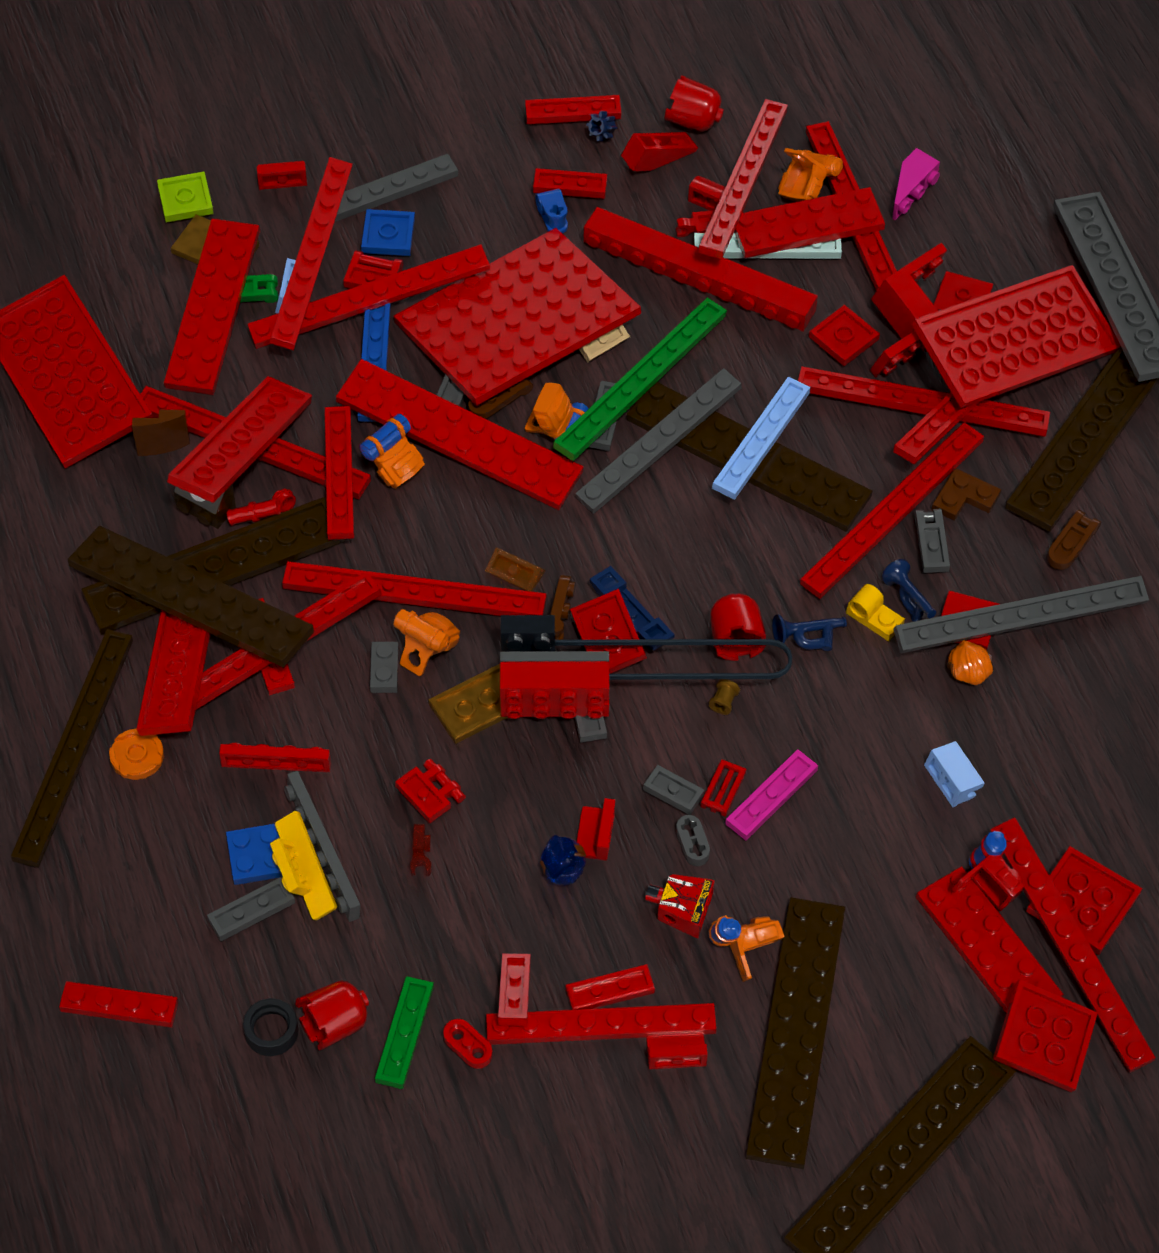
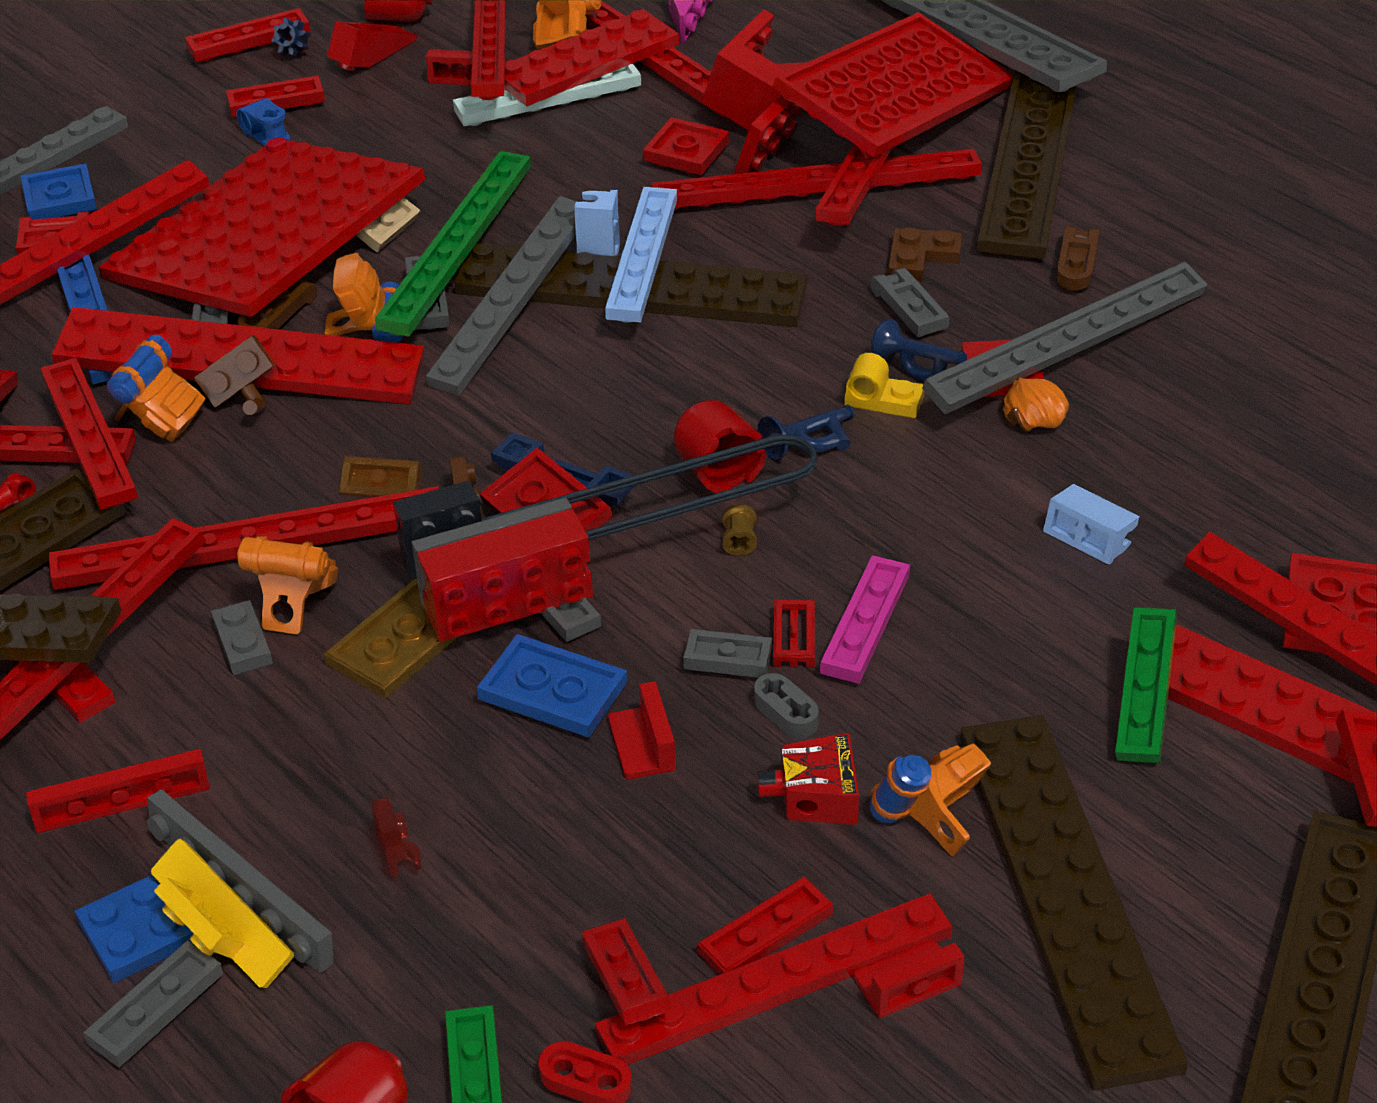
camera: 20 degrees left, 15 degrees down
(424, 796) = (366, 767): red plate -> none
(449, 453) = (235, 374): none -> reddish brown plate
(556, 774) = (552, 685): none -> blue plate
(563, 860) = (615, 781): clear blue hair -> none
(697, 223) = (449, 91): red plate -> none
(706, 273) = (476, 129): red brick -> none
(742, 404) = (598, 223): none -> light blue hinge
(891, 510) = (839, 291): red plate -> none
(917, 911) = (1146, 685): none -> green plate
(992, 873) = (1218, 604): red piece -> none

